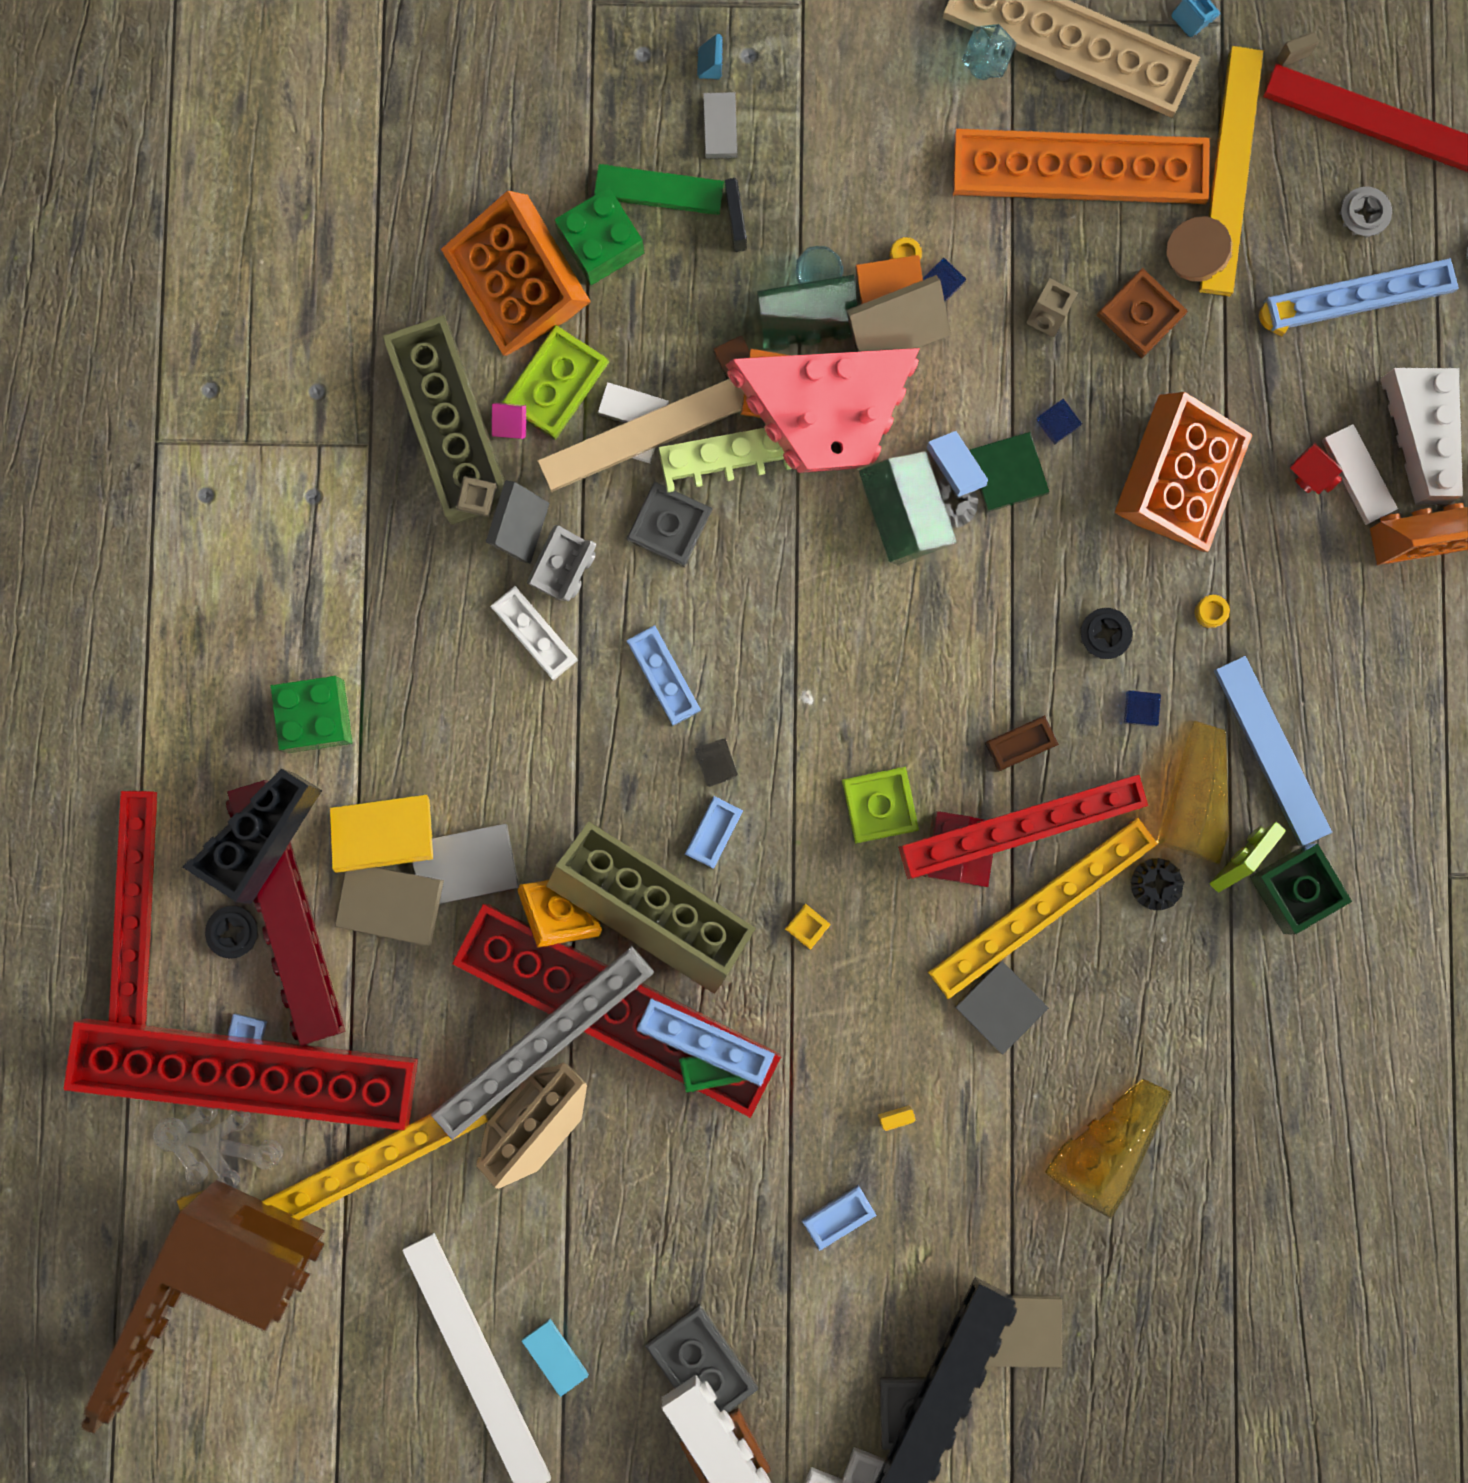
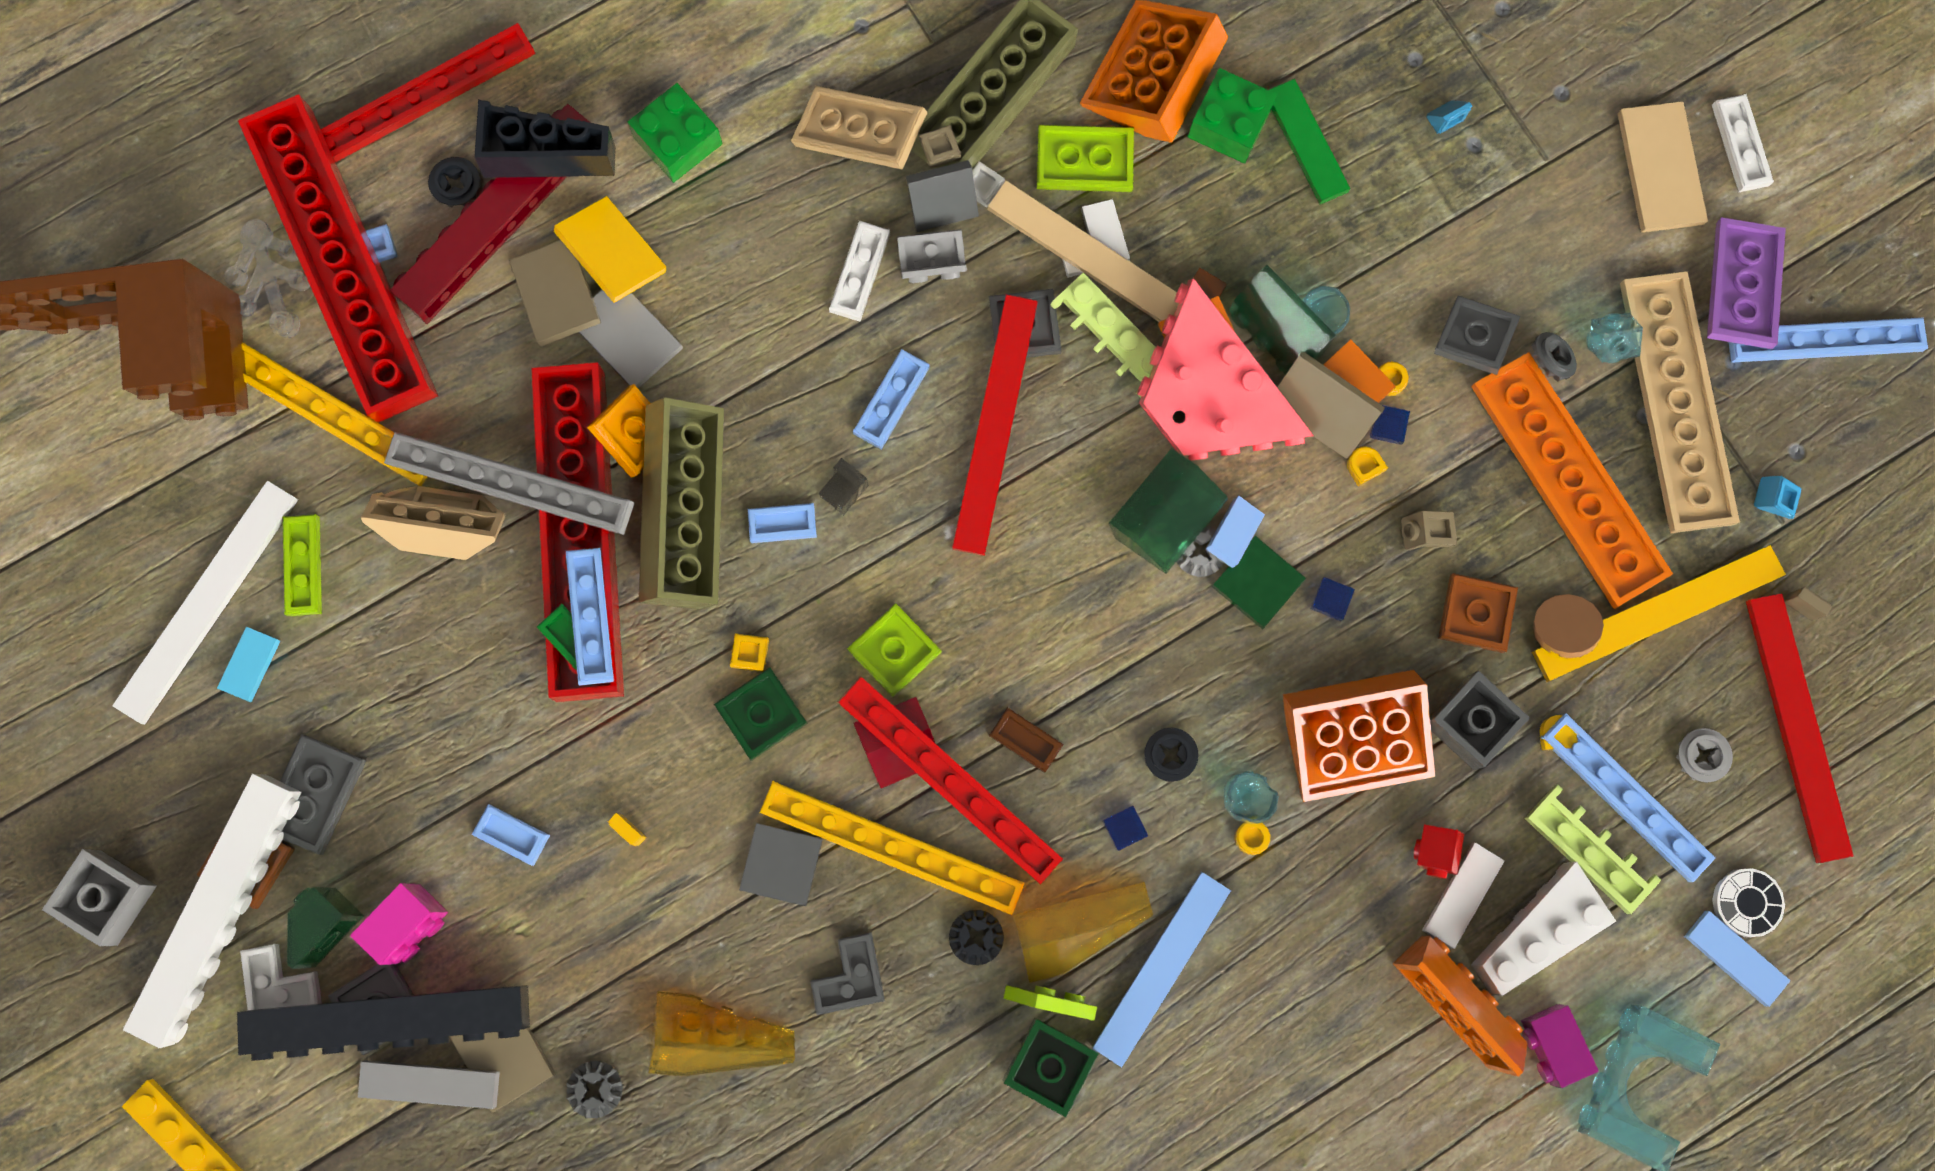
camera: 55 degrees right, 5 degrees down
(410, 554) = (859, 127): none -> tan tile
(495, 1262) = (302, 565): none -> lime tile
(509, 420) = (1026, 139): dark pink tile -> none
(525, 476) = (986, 183): none -> white tile
(720, 125) = (1396, 157): light grey tile -> none
(735, 215) = (1327, 215): black tile -> none
(742, 602) = (995, 425): none -> red tile
(820, 1423) = (317, 925): none -> clear green slope
(865, 948) = (760, 714): none -> dark green tile
(866, 1362) = (400, 924): none -> dark pink brick
(915, 160) = (1477, 335): none -> dark grey tile
(965, 322) = (1365, 464): none -> yellow tile
(972, 110) = (1559, 363): none -> dark grey gear
(1007, 1406) = (428, 1084): none -> light grey tile
(1079, 1263) = (610, 1089): none -> dark grey gear
(1137, 1006) = (859, 983): none -> dark grey tile
(1183, 592) = (1250, 798): none -> clear light blue hair
(1232, 371) = (1477, 720): none -> dark grey brick
(1387, 352) = (1591, 853): none -> yellowish green hinge

